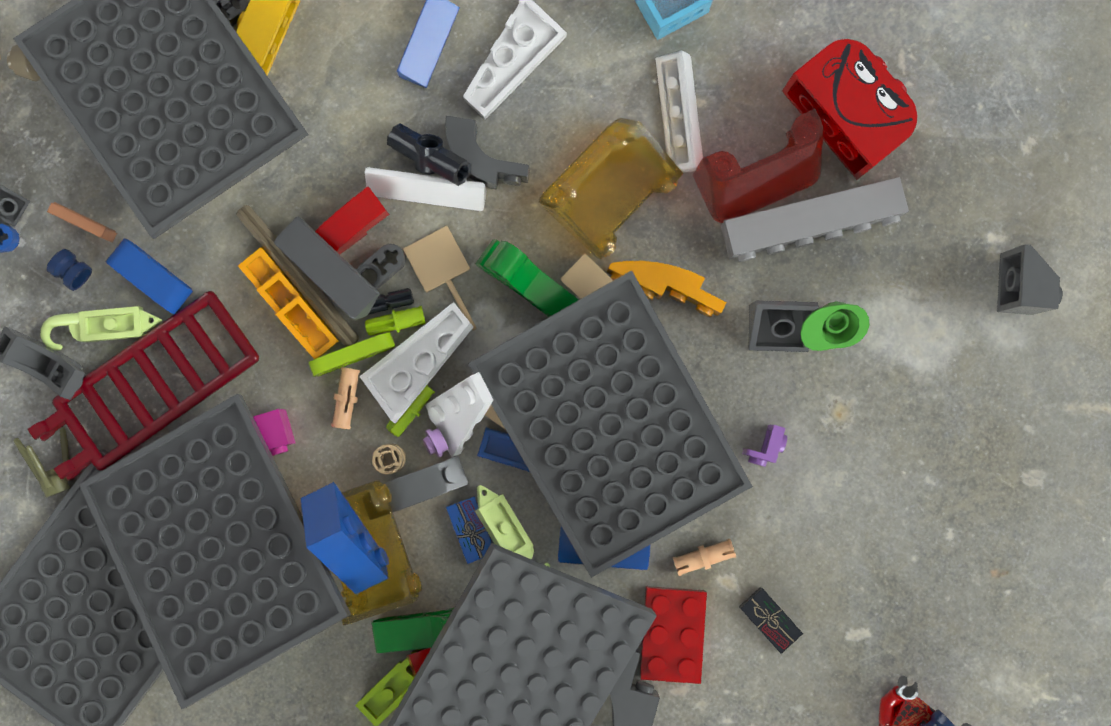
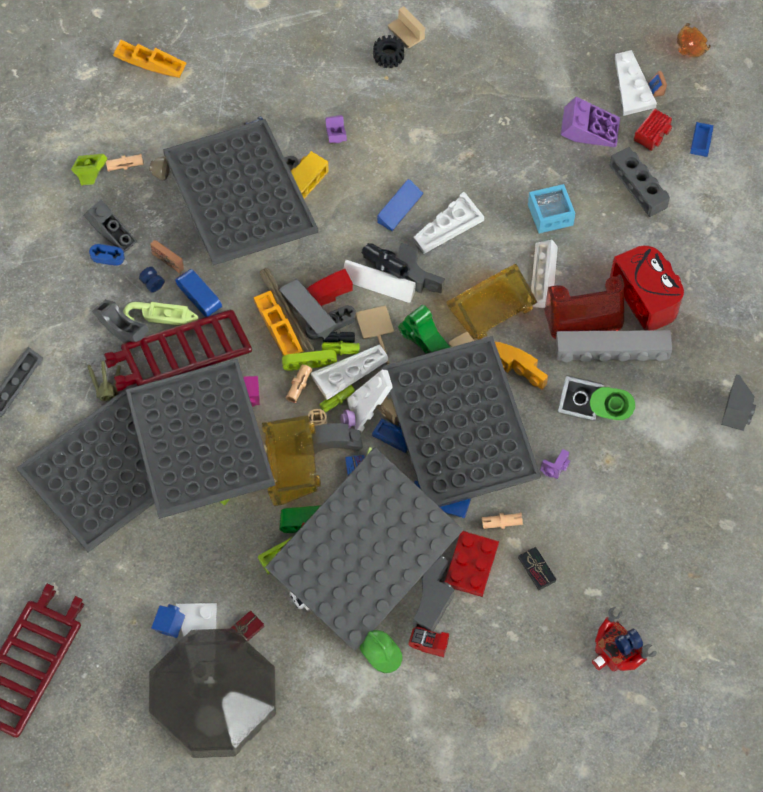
camera: 15 degrees right, 25 degrees down
(342, 540) = (282, 445): blue wedge -> none

